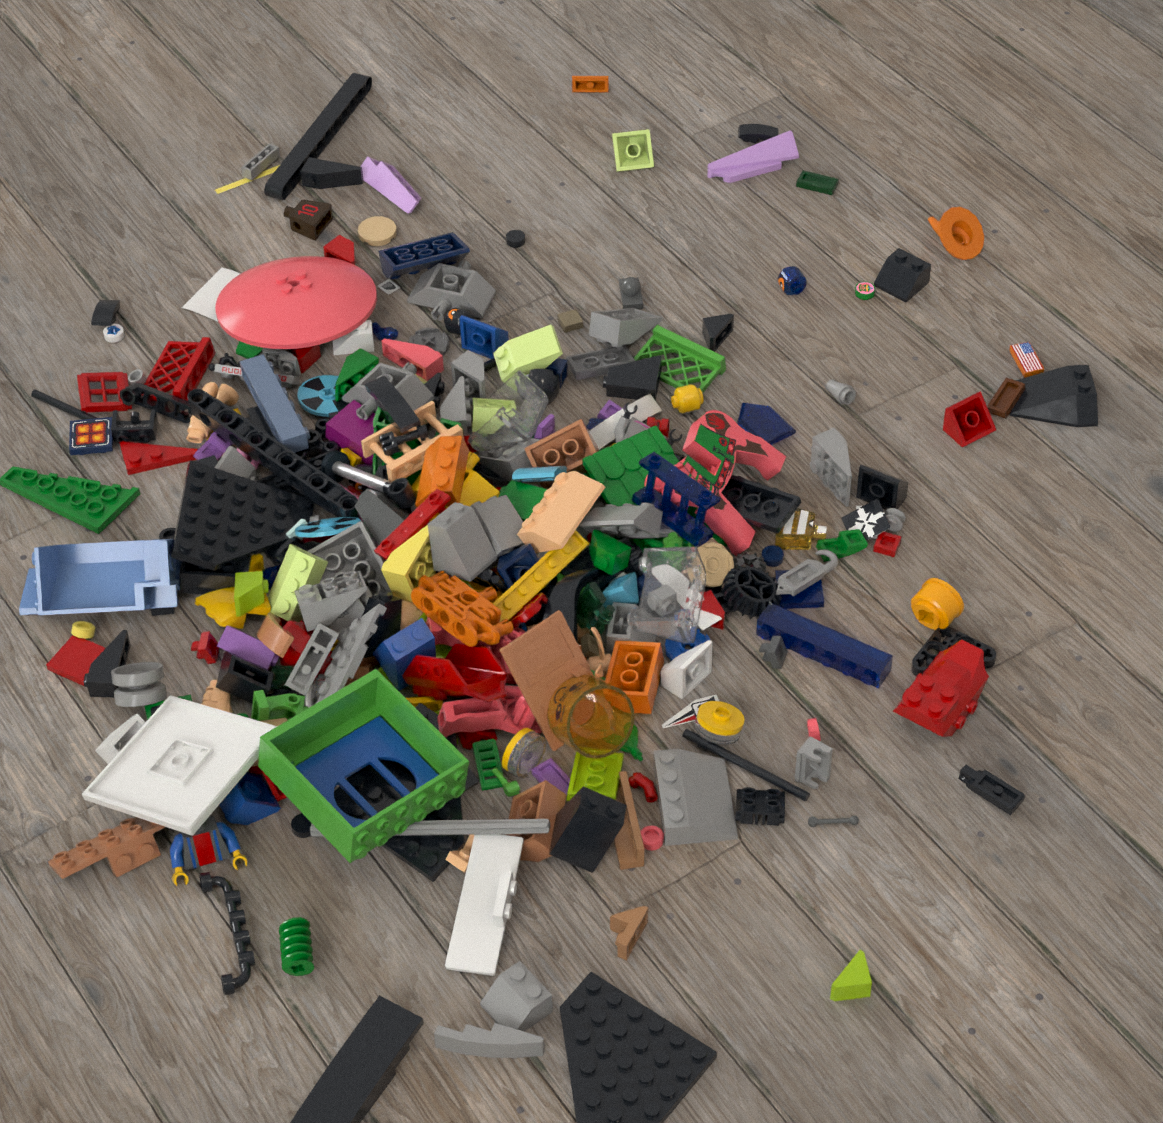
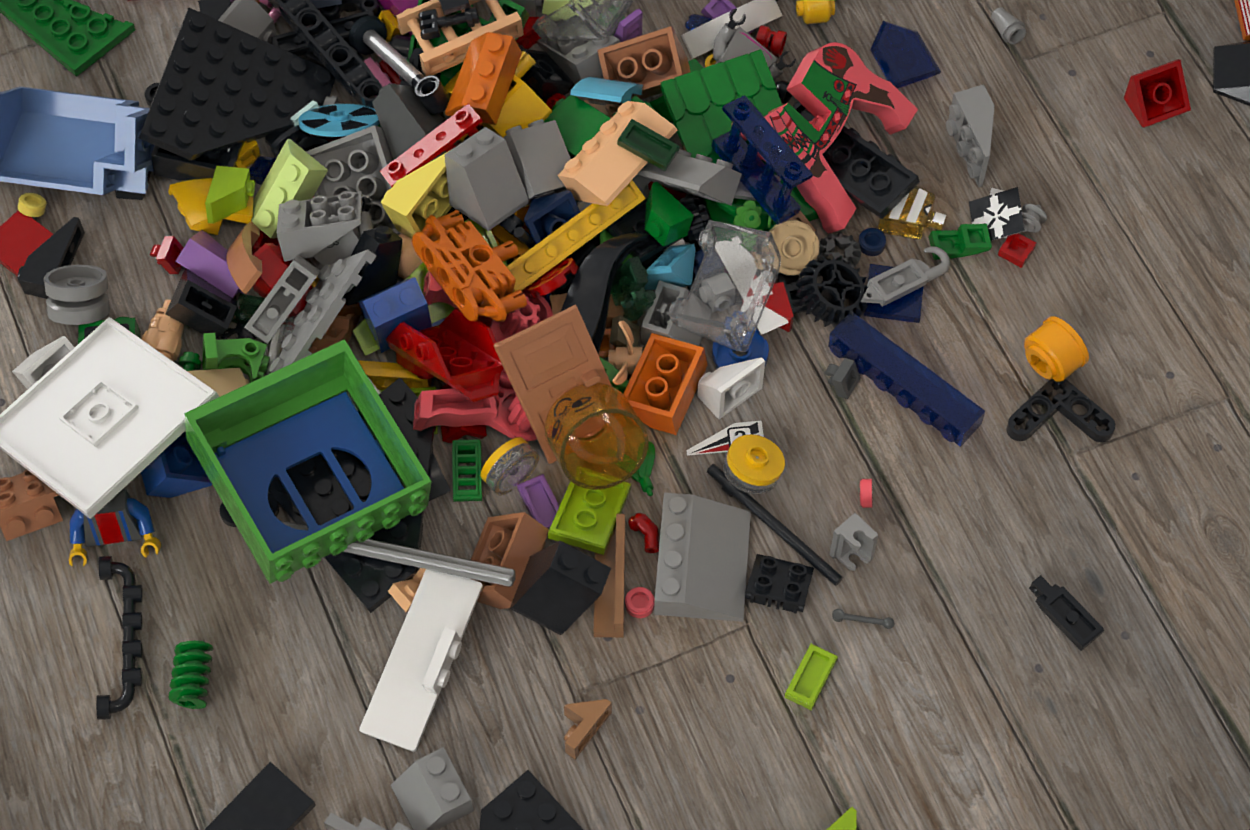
camera: 10 degrees right, 15 degrees up
(511, 788) = (486, 506): bright green hand -> none
(585, 499) = (648, 145): none -> dark green tile
(802, 868) = (811, 676): none -> lime tile
(877, 484) = (1024, 169): black slope -> none
(946, 690) = (1038, 471): red slope -> none
(1006, 397) = (1212, 68): reddish brown tile -> none

